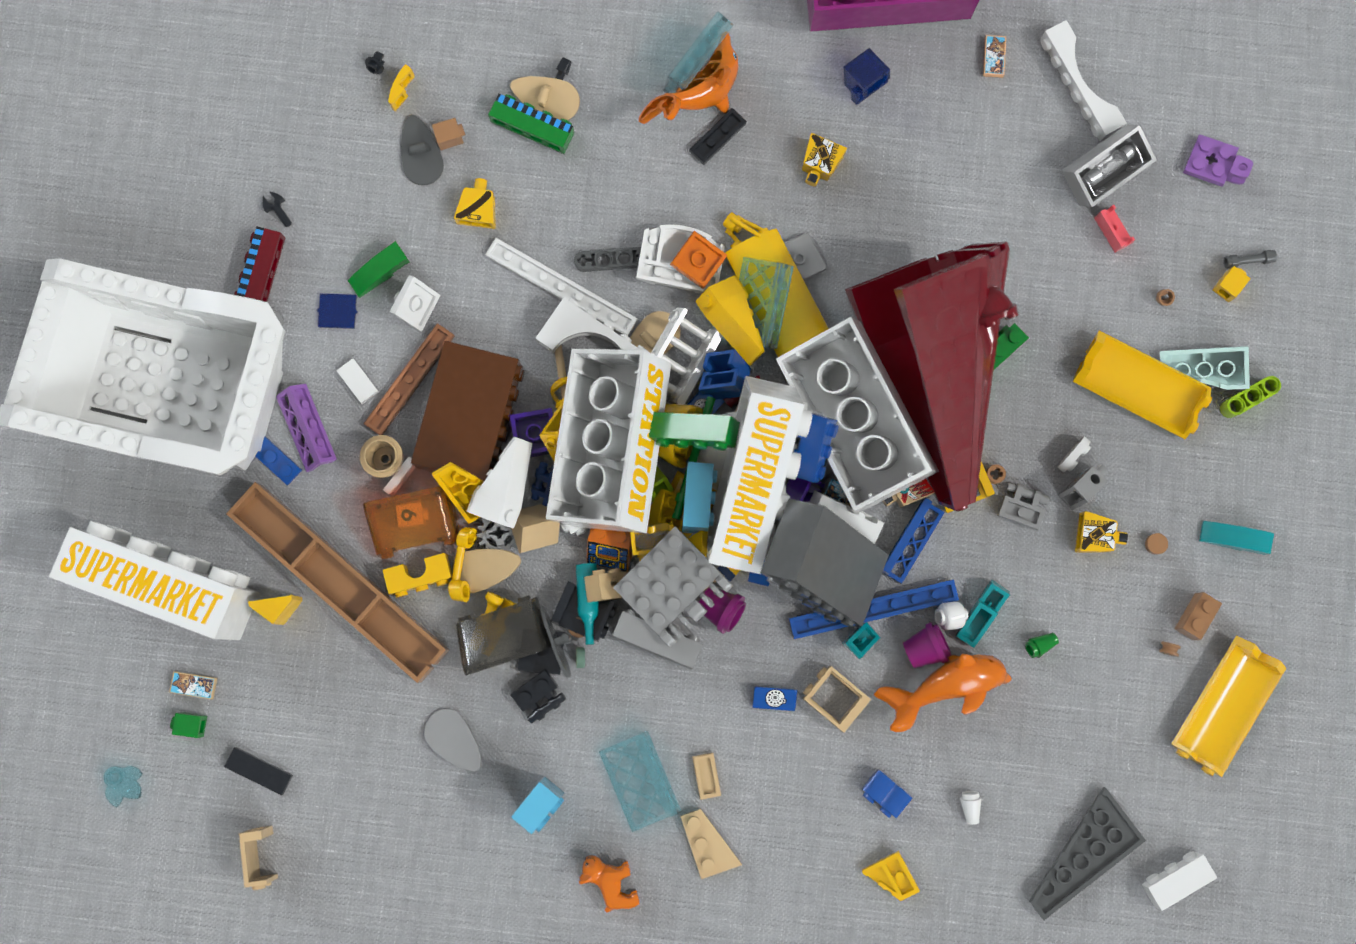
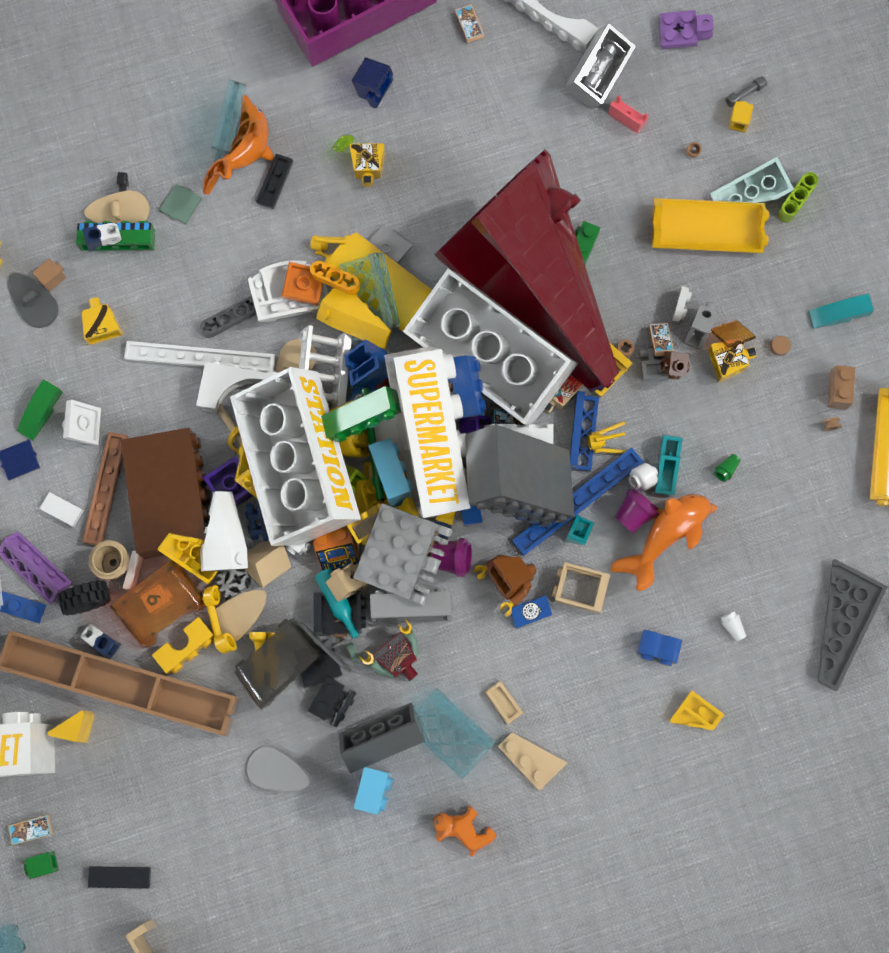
camera: 20 degrees left, 5 degrees down
(338, 531) = (100, 641): none -> dark blue leg
(341, 482) = (84, 597): none -> black tyre
(517, 118) = (101, 235): none -> leg
(569, 756) = (381, 737): none -> dark grey brick
(612, 117) = (180, 204): none -> sand green piece
(621, 681) = (396, 655): none -> torso
(731, 259) = (331, 270): none -> light orange beam
(770, 655) = (510, 577): none -> dark orange torso
(805, 128) = (343, 143): none -> clear neon green tile
(921, 557) = (596, 440): none -> yellow plant
(1036, 482) = (660, 338): none -> tile
(1038, 516) = (675, 364): none -> brick
(1113, 510) = (733, 333): none -> clear orange piece

